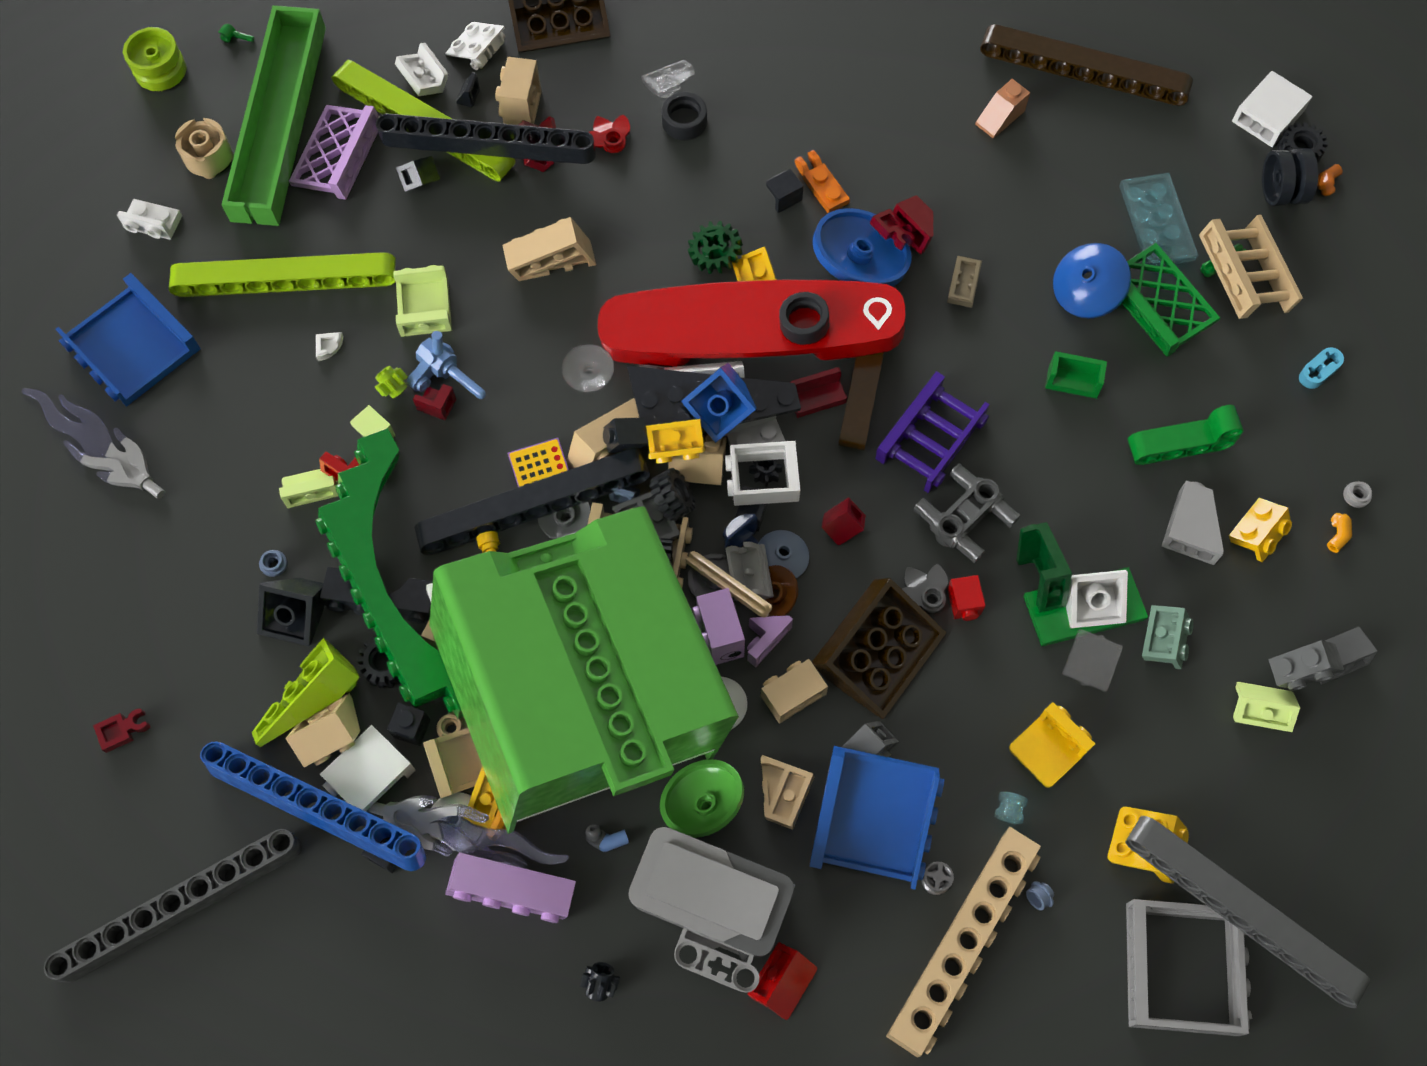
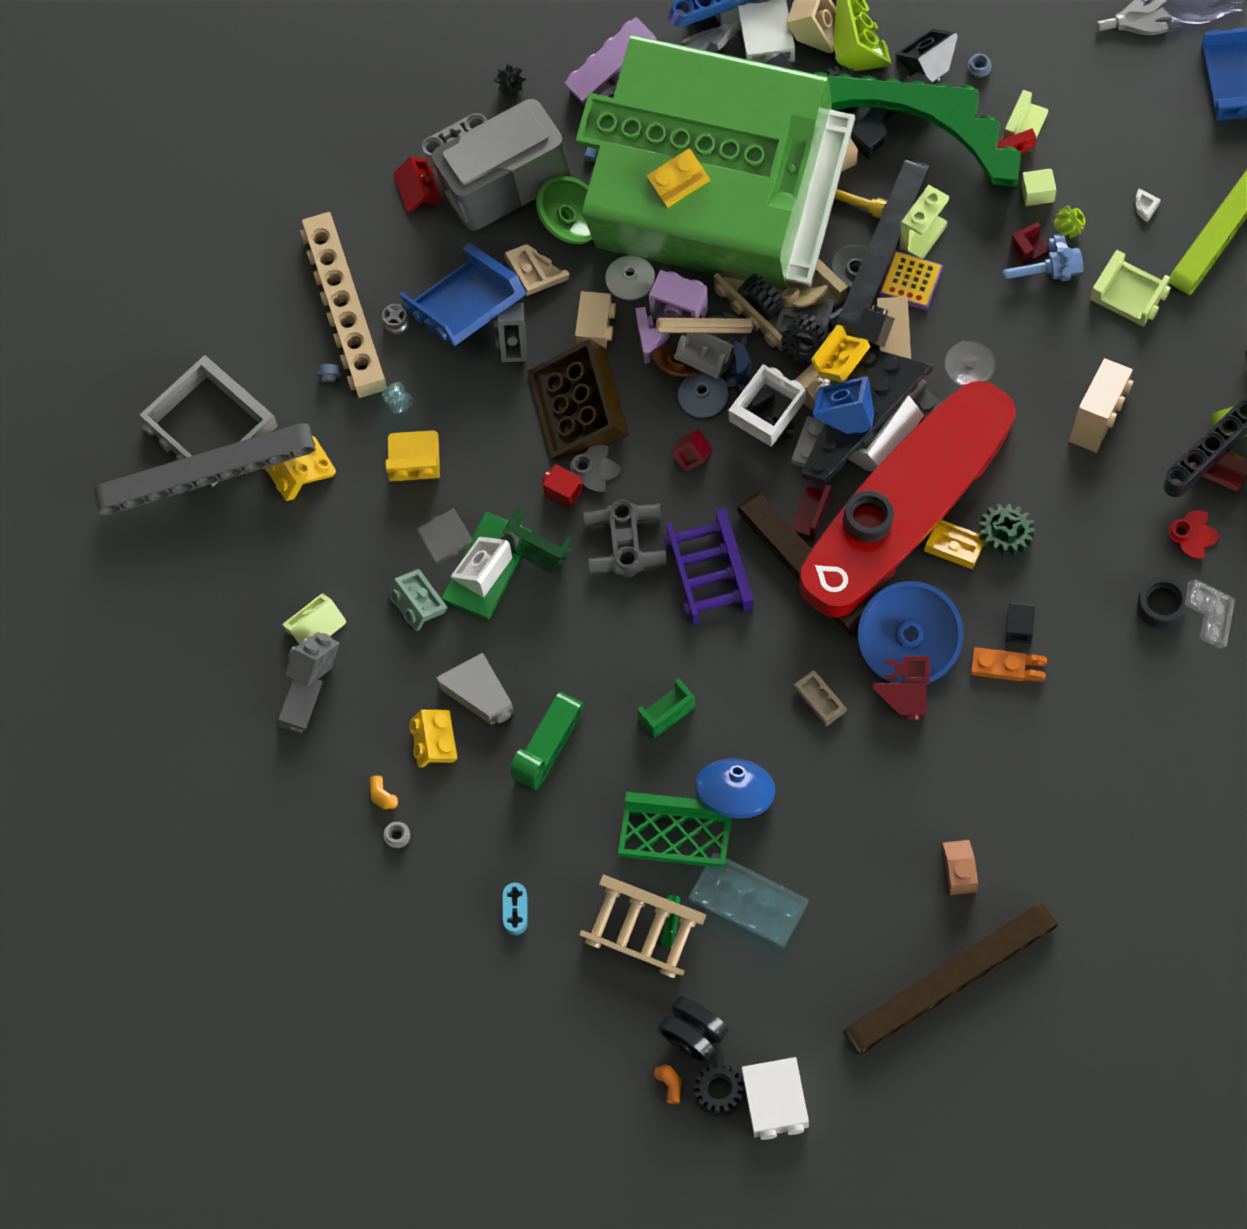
camera: 135 degrees right, 0 degrees up
(481, 476) = (922, 224): none -> yellowish green panel
(642, 639) = (678, 178): none -> yellow plate

